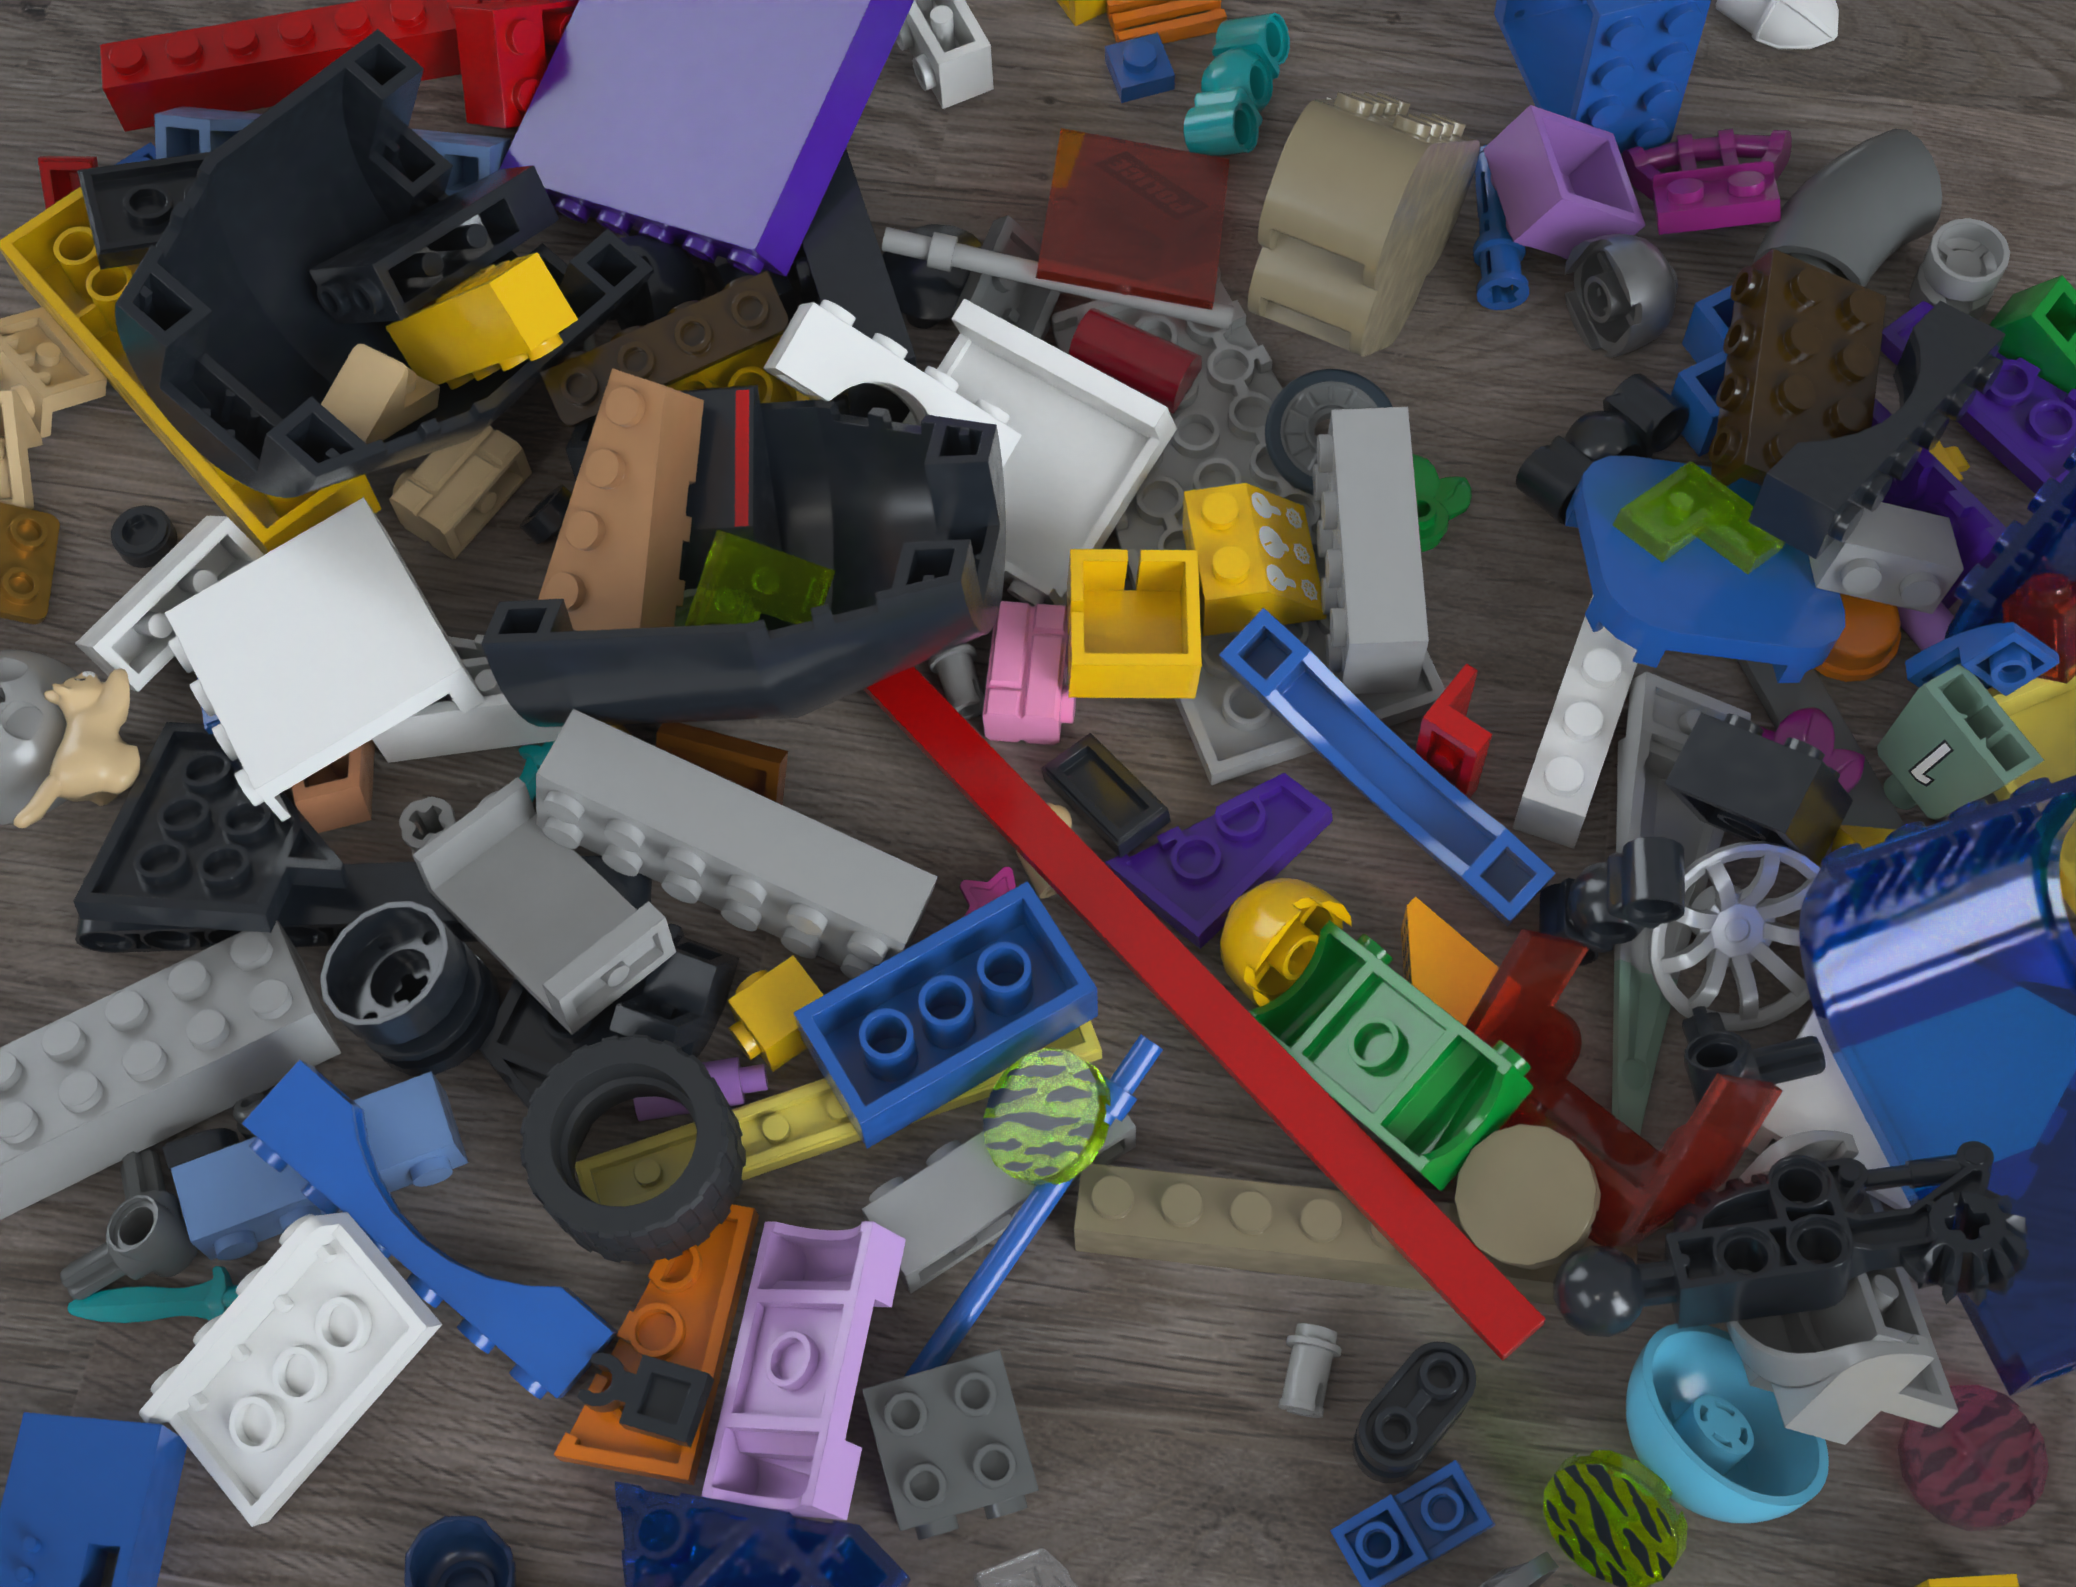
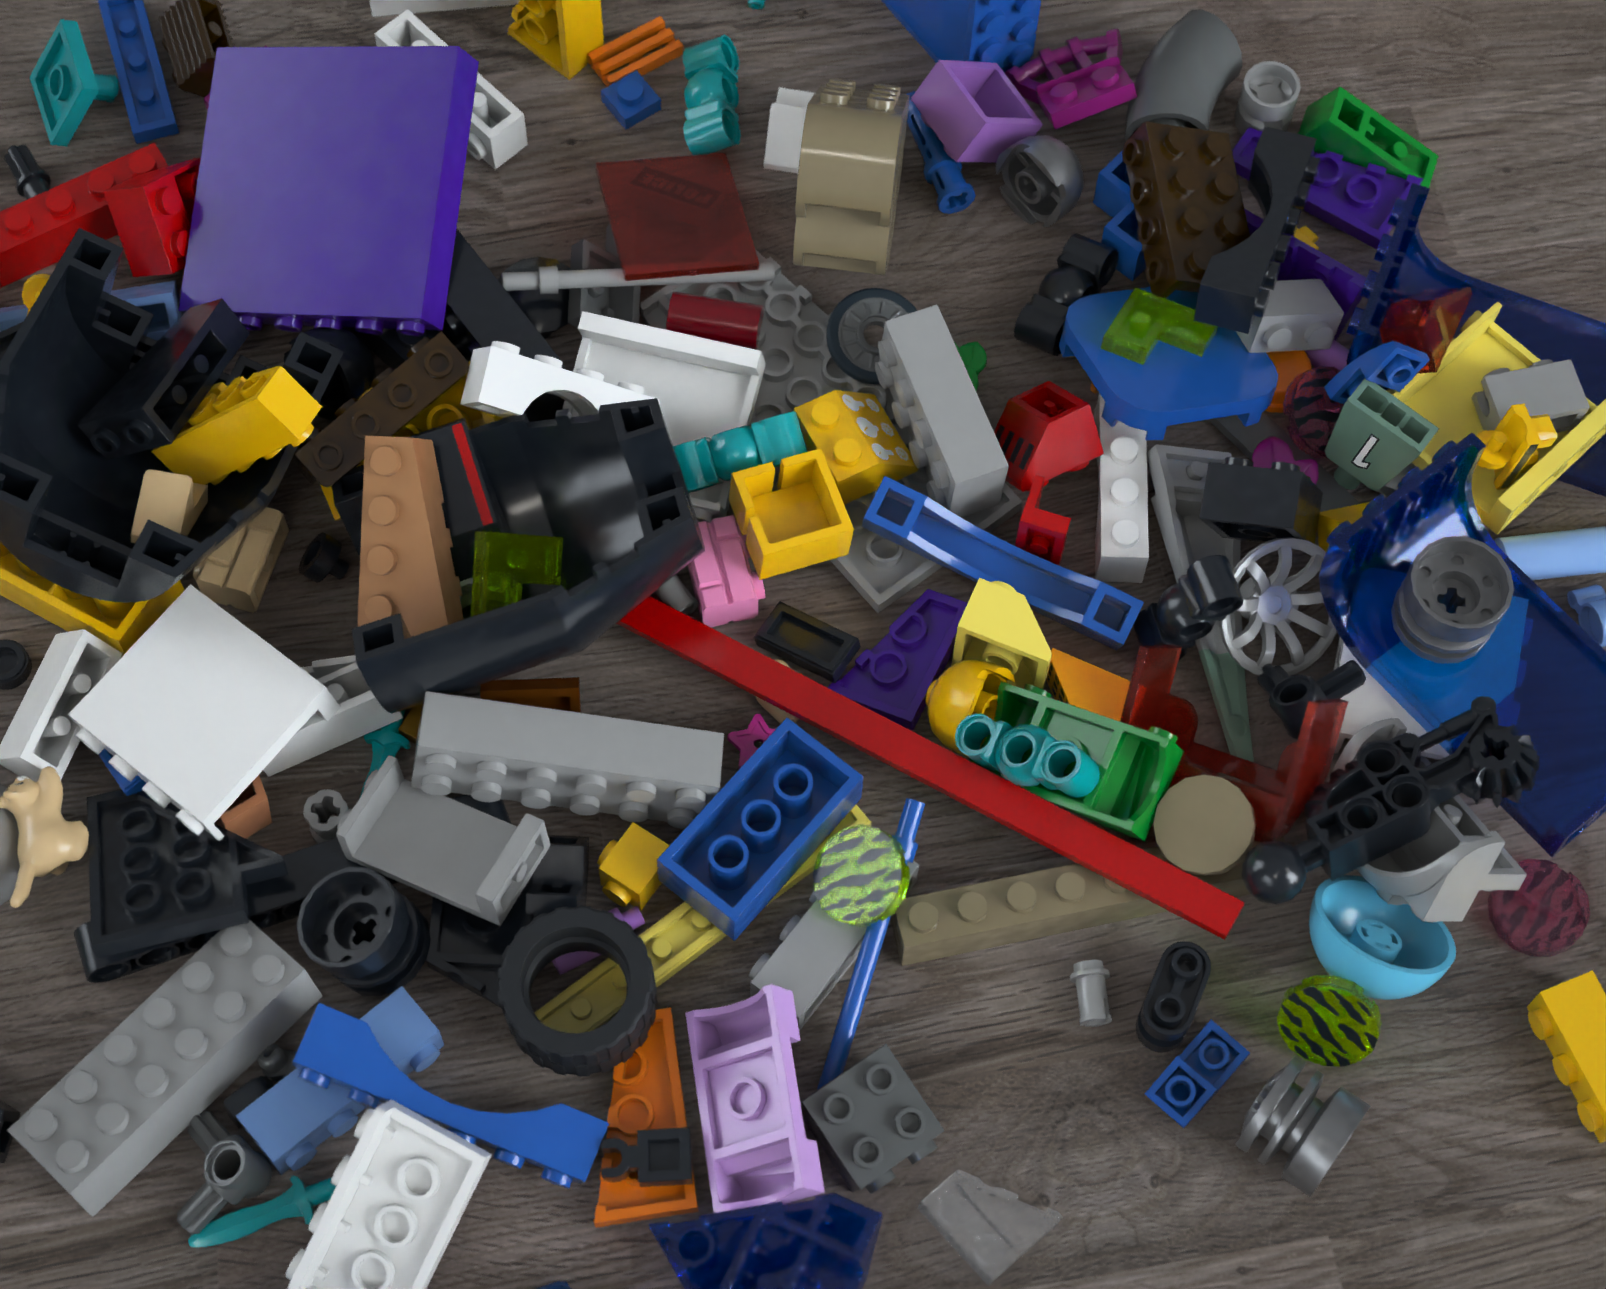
camera: 25 degrees left, 0 degrees up
(1048, 527) = (714, 459): none -> teal piece
(1338, 1046) = (1044, 765): none -> teal piece
(1352, 854) = (1003, 631): none -> light yellow slope
(1502, 620) = (1046, 435): none -> red slope
(1877, 686) = (1311, 410): none -> clear pink tile
(2002, 970) = (1452, 599): none -> flat silver wheel

